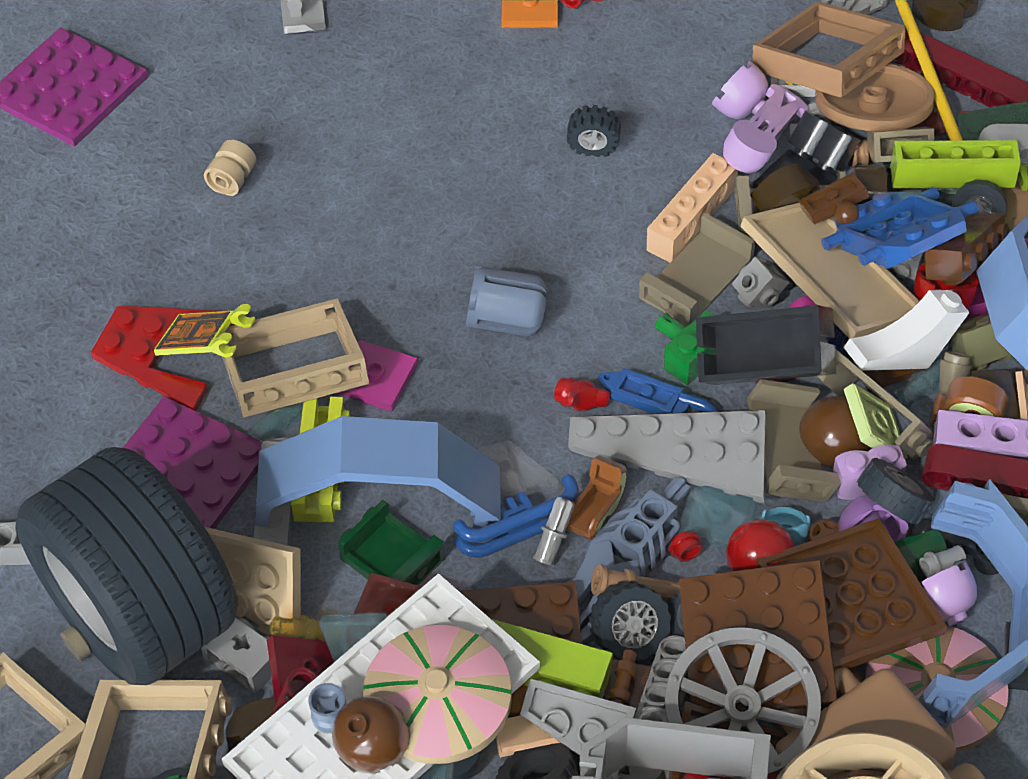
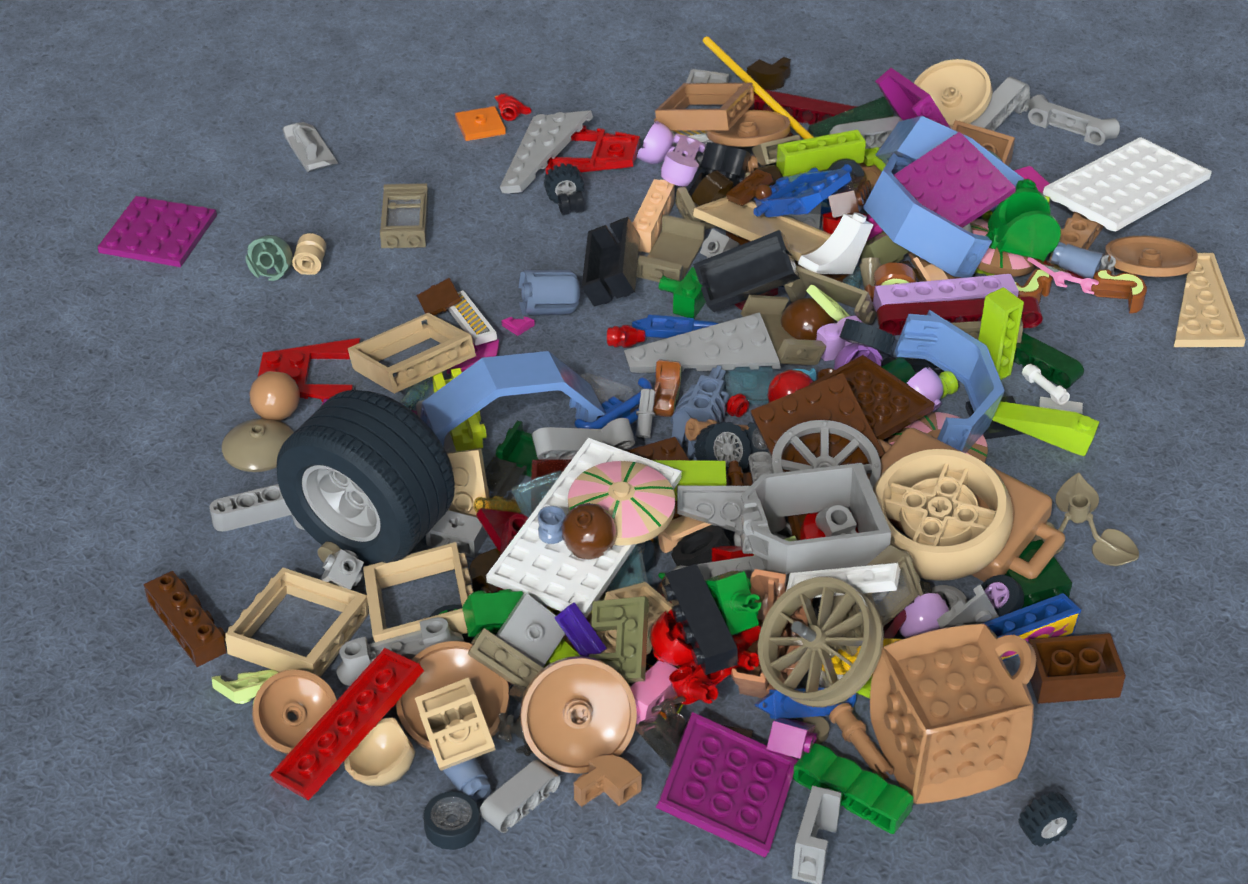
camera: 20 degrees left, 10 degrees down
(47, 456) = (255, 444): none -> dark tan dish
(71, 693) = (342, 569): none -> light grey brick
(98, 382) = (274, 395): none -> medium nougat piece
(175, 156) = (267, 253): none -> sand green cylinder
(203, 332) = (341, 349): flag -> none
(331, 584) = (502, 476): none -> clear smoke plate
(365, 274) = (439, 297): none -> reddish brown piece
(373, 133) = (404, 216): none -> dark tan door
(391, 316) = (472, 320): none -> tile
(453, 339) = (518, 326): none -> dark pink tile
(454, 562) = (564, 443): none -> light grey beam
(594, 56) = (543, 139): none -> light grey wing
(594, 161) = (571, 202): none -> black wheel
(603, 274) = (610, 265): none -> black piece
(682, 91) = (609, 152): none -> red wing
(935, 563) = (907, 373): light grey pin -> none
(988, 585) = (949, 382): none -> lime wheel

